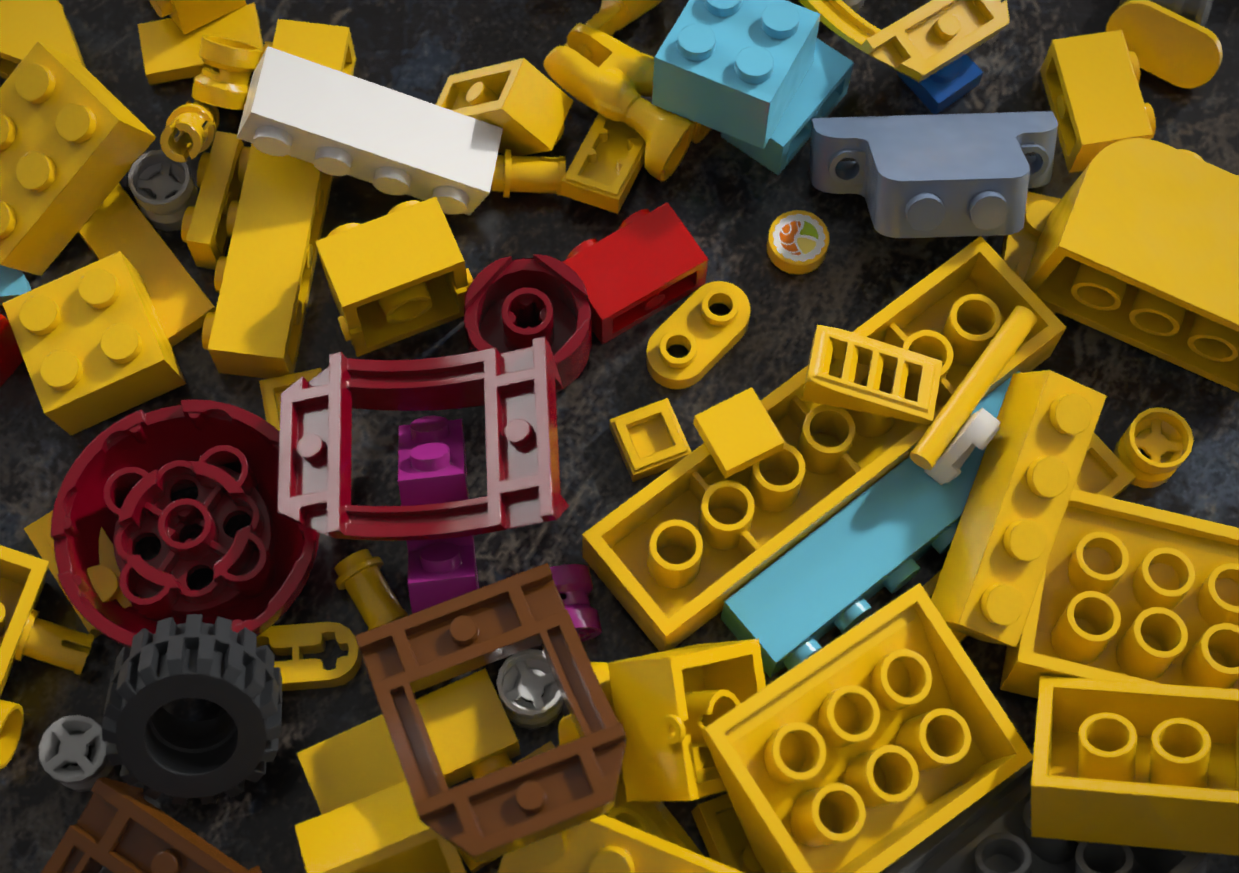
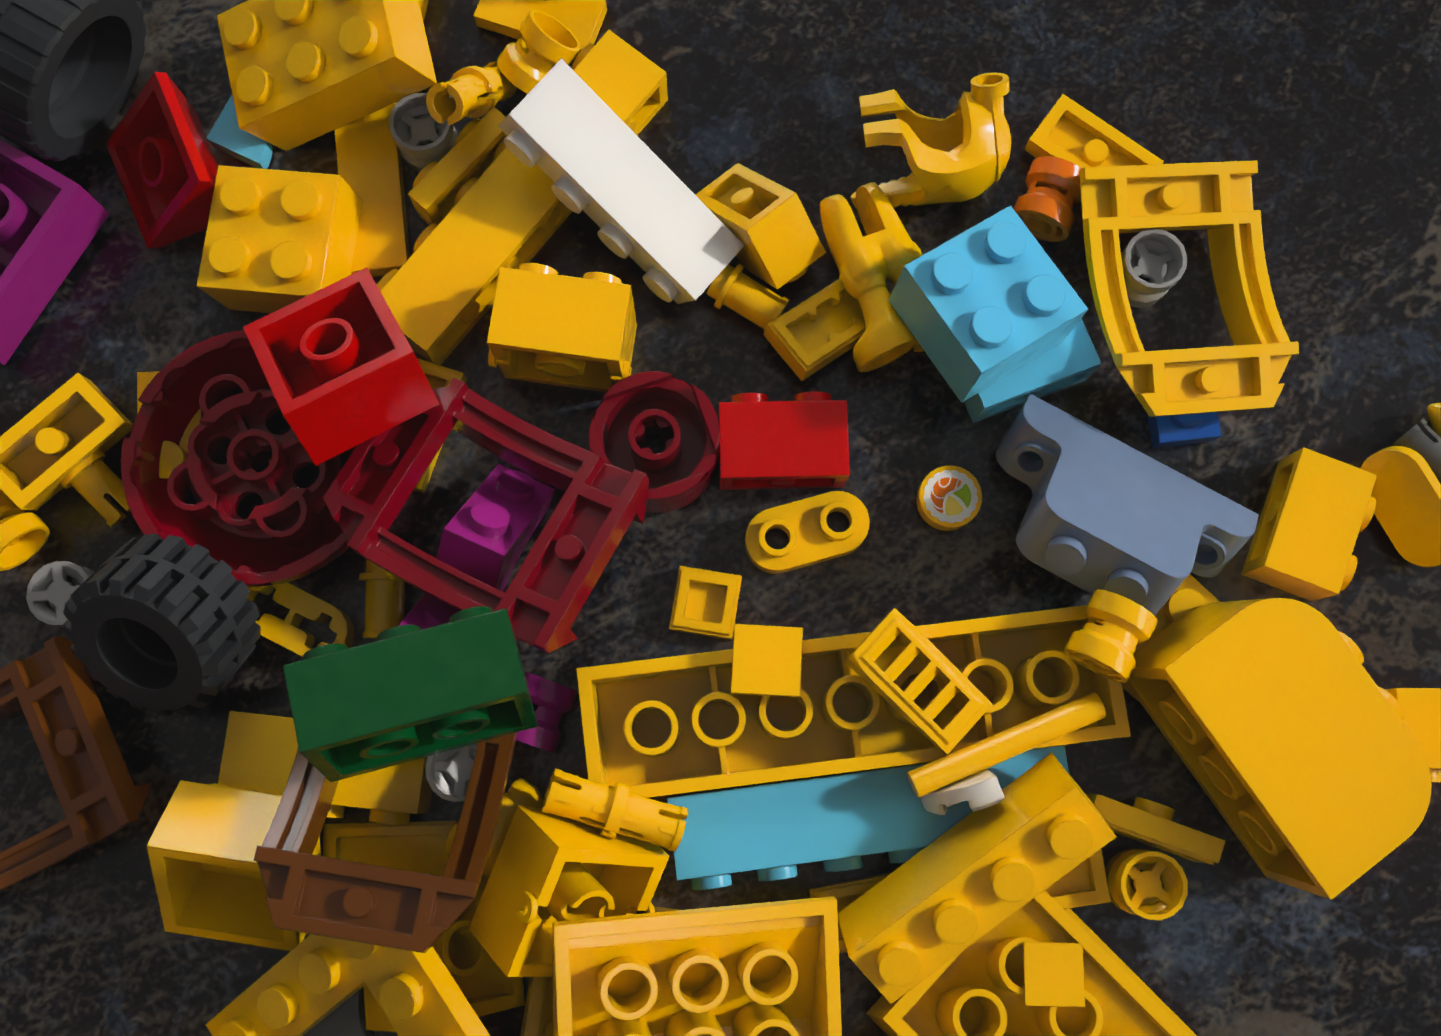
camera: 30 degrees right, 10 degrees up
(231, 389) = (340, 366): none -> red brick
(470, 604) = (409, 694): none -> dark green brick
(690, 622) = (615, 810): none -> yellow pin
(1000, 252) = (1111, 635): none -> yellow wheel
(1129, 548) = (1054, 974): none -> yellow sticker
(1130, 396) = (1153, 825): none -> yellow plate

